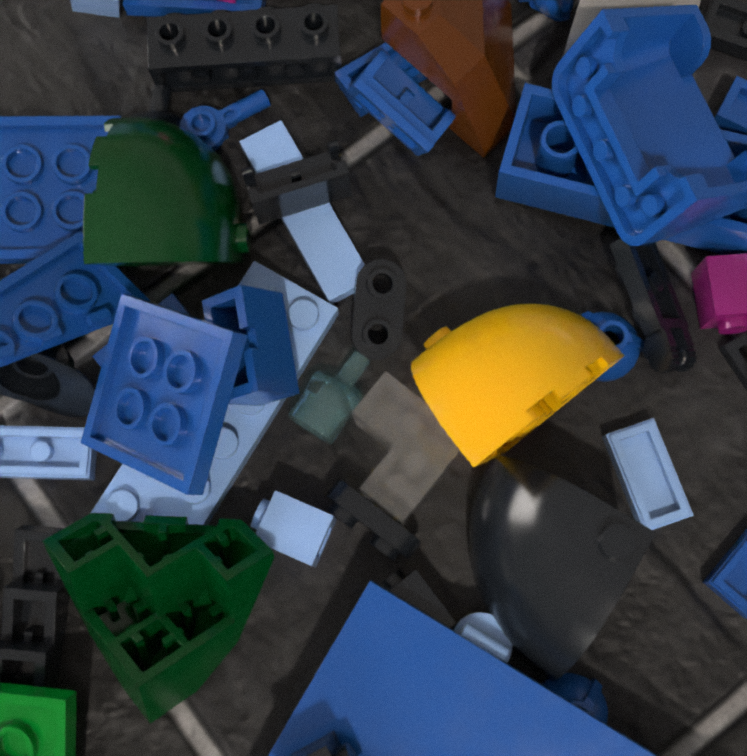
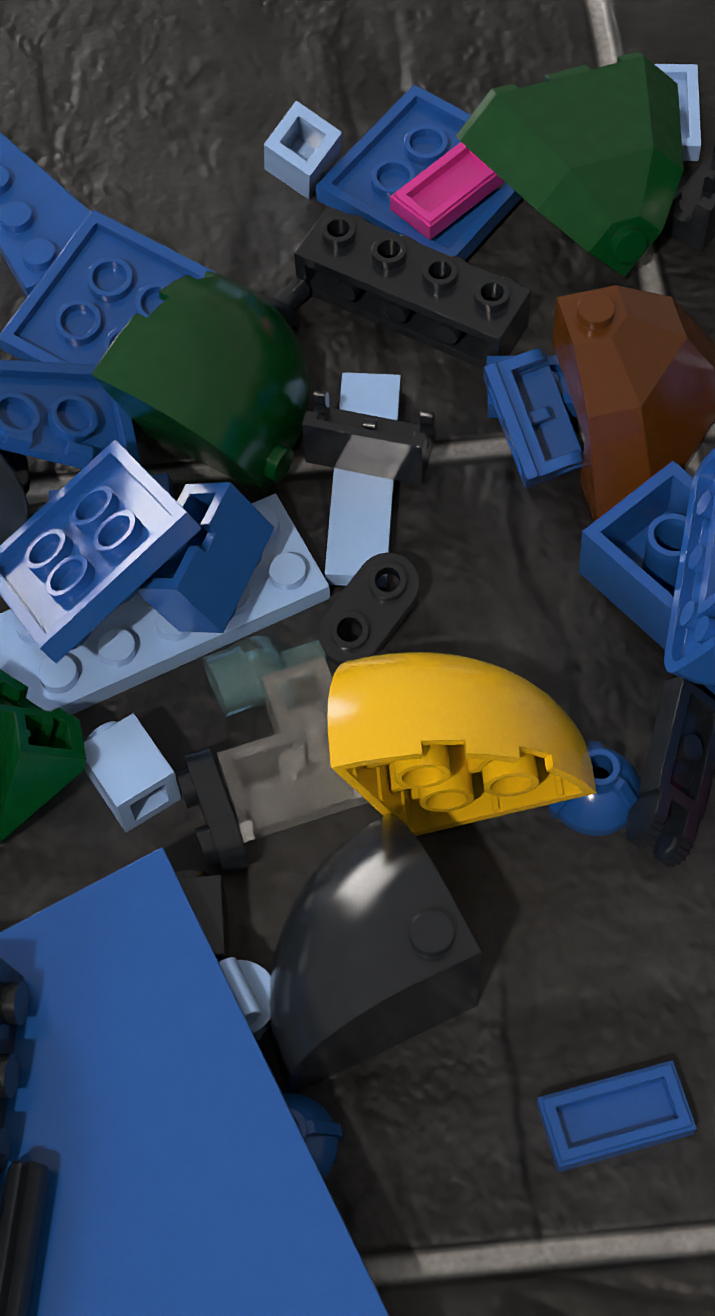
camera: 30 degrees right, 15 degrees down
(214, 124) = (328, 347): blue plate -> none
(647, 475) = (548, 950): light blue tile -> none

